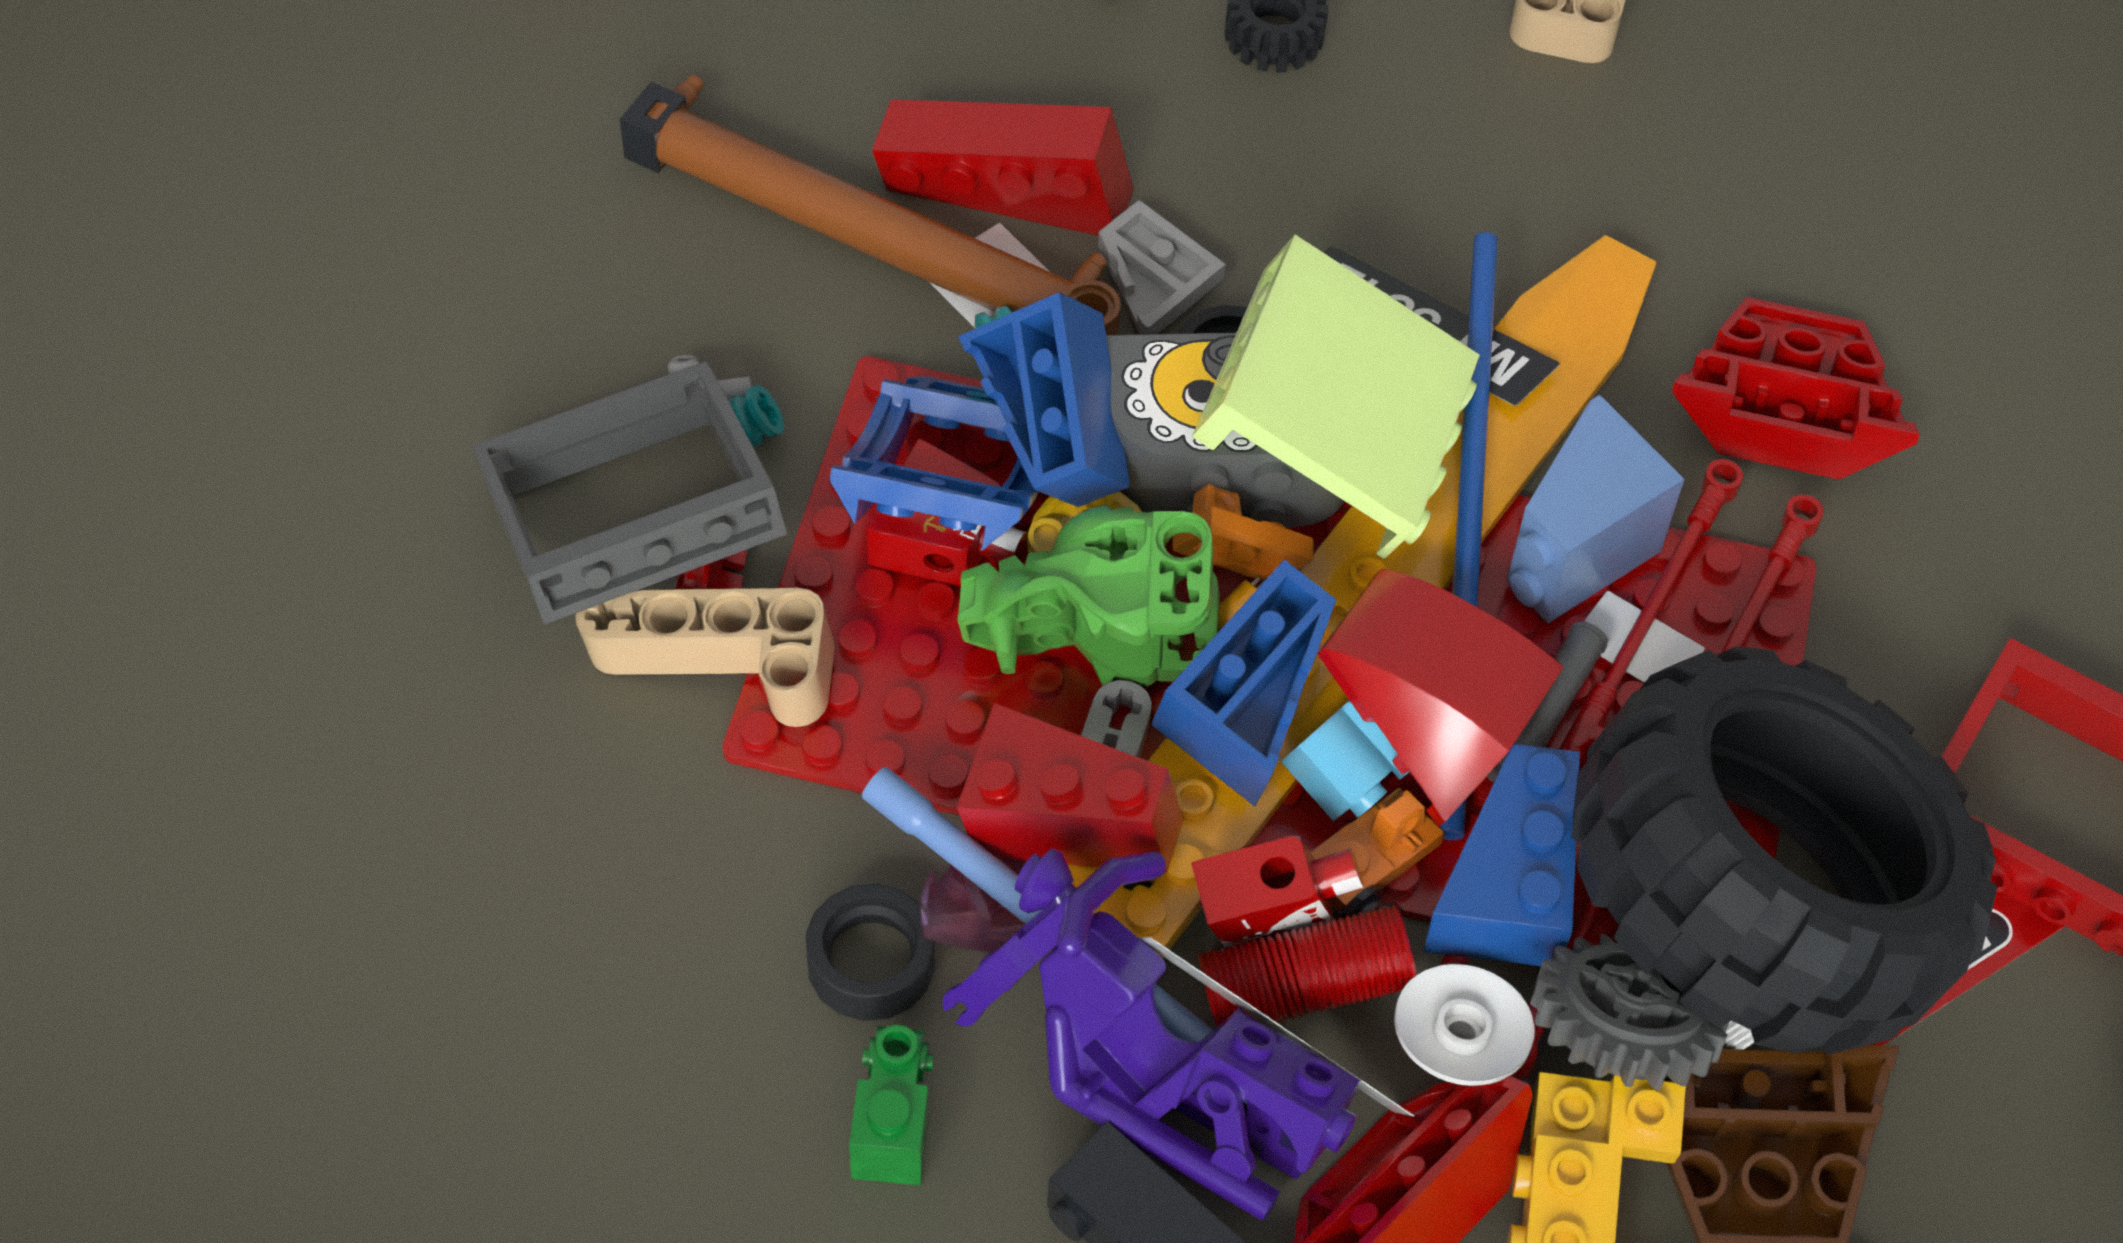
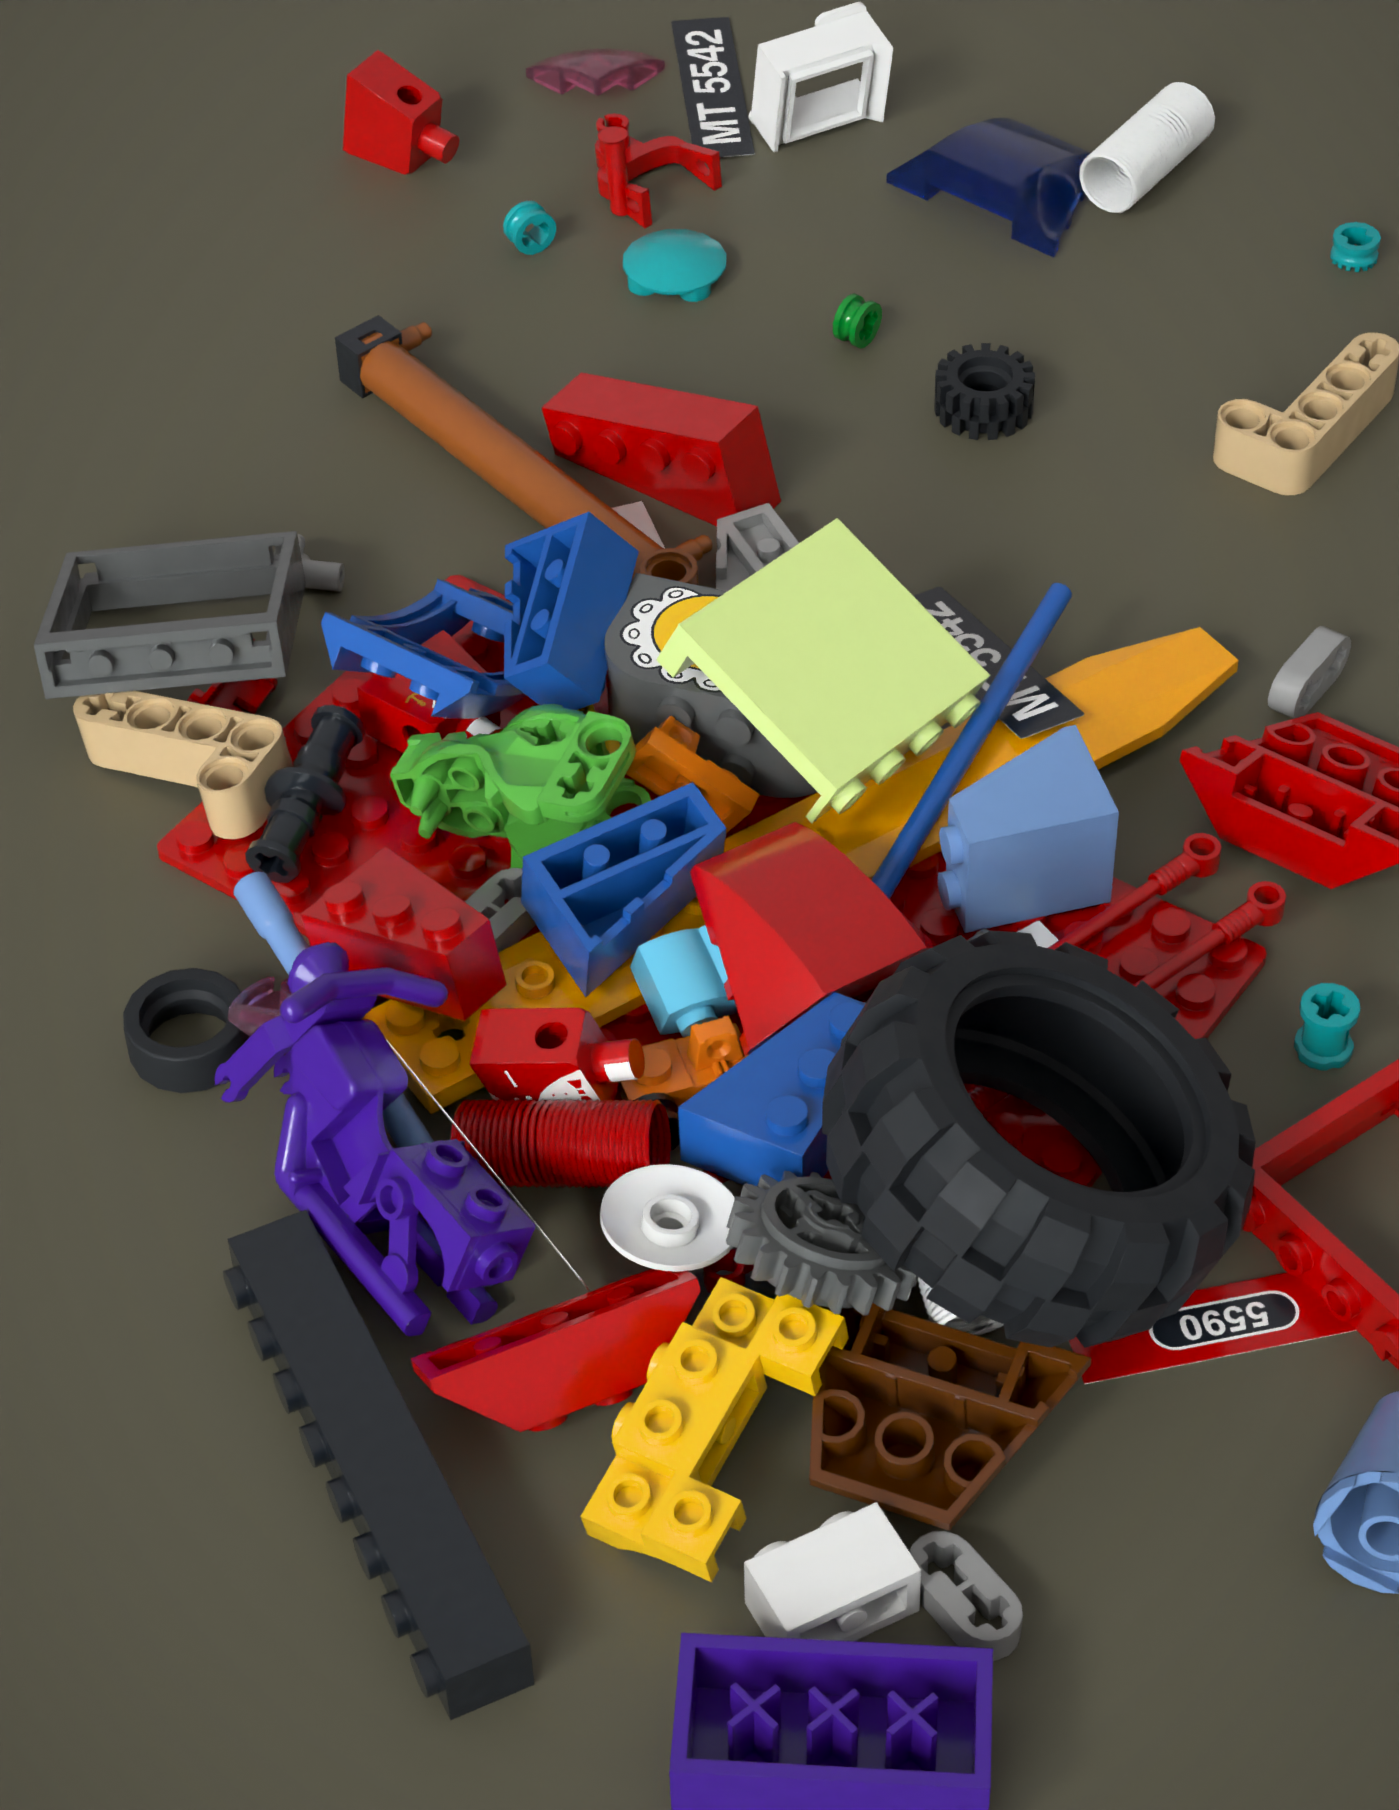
camera: 25 degrees right, 10 degrees down
(758, 414) = (328, 592): teal bush -> none
(865, 657) = (305, 793): none -> black piece
(891, 1108) = (120, 1159): green brick -> none
(1719, 256) = (1309, 672): none -> light grey beam
(1914, 622) = (1328, 1016): none -> teal bush

